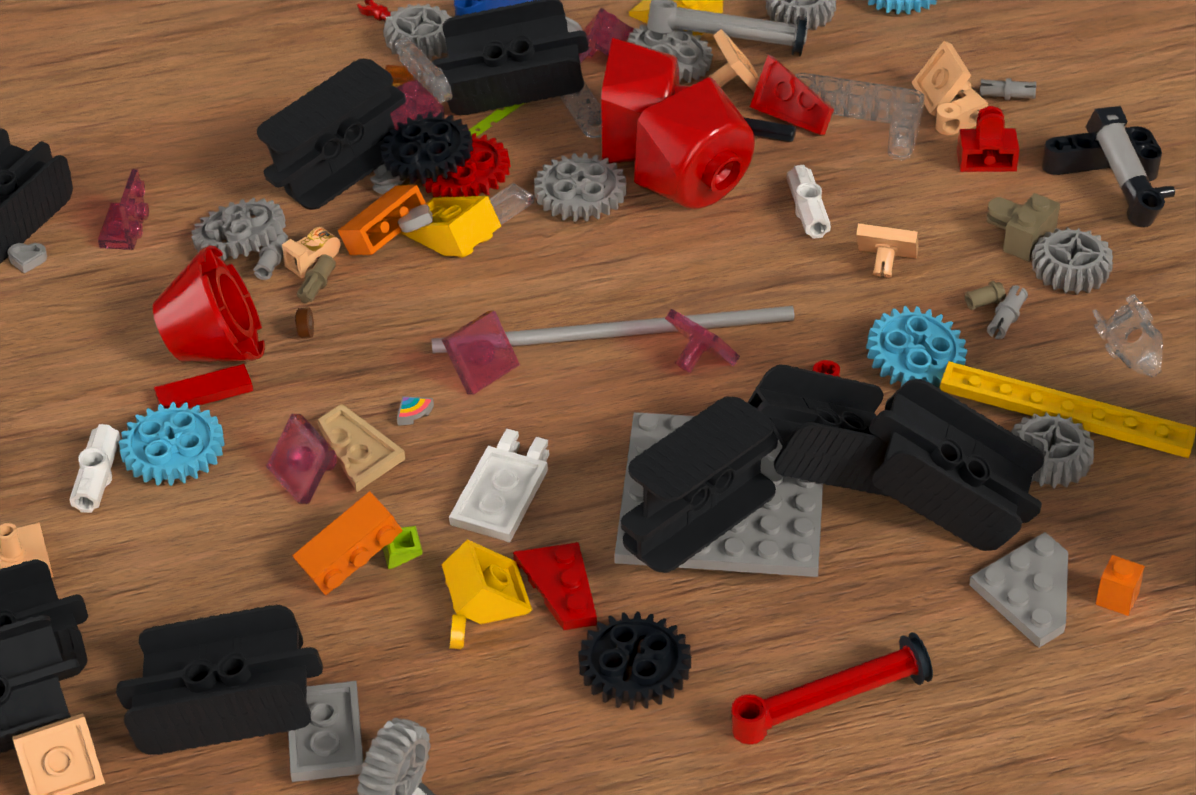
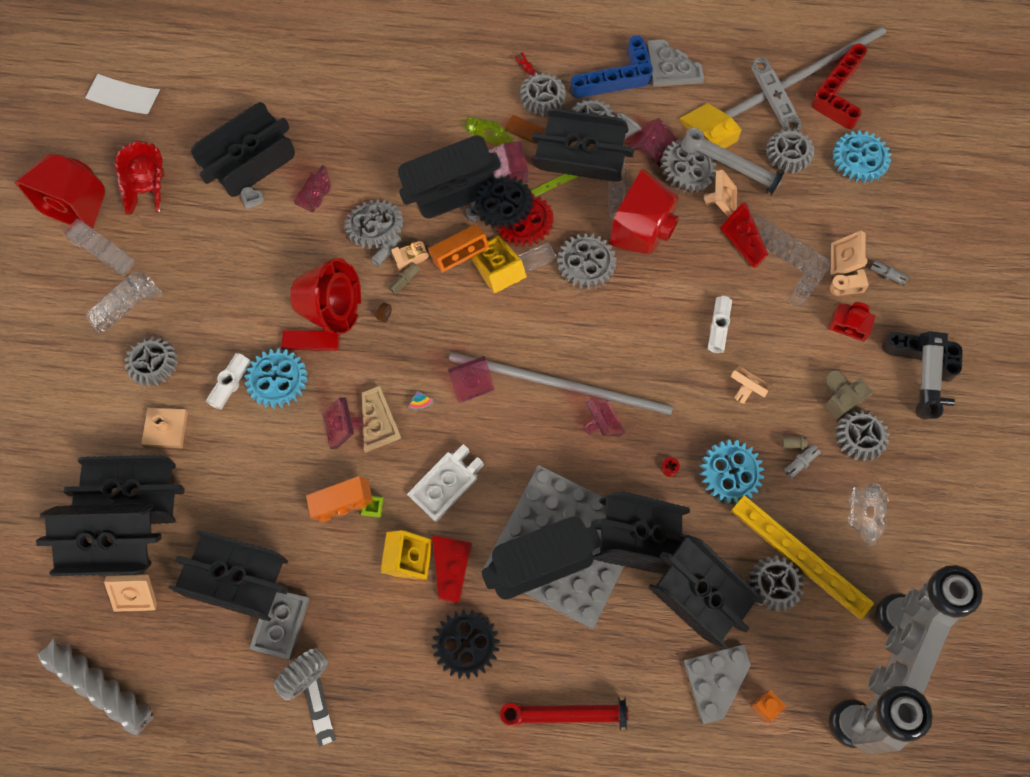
camera: 20 degrees right, 25 degrees up
(416, 218) = (477, 256): light grey tile -> none
(423, 69) = (528, 145): clear piece -> none
(457, 632) = (377, 583): yellow tile -> none
(693, 146) = (662, 266): red piece -> none
(772, 130) = (715, 247): black axle -> none

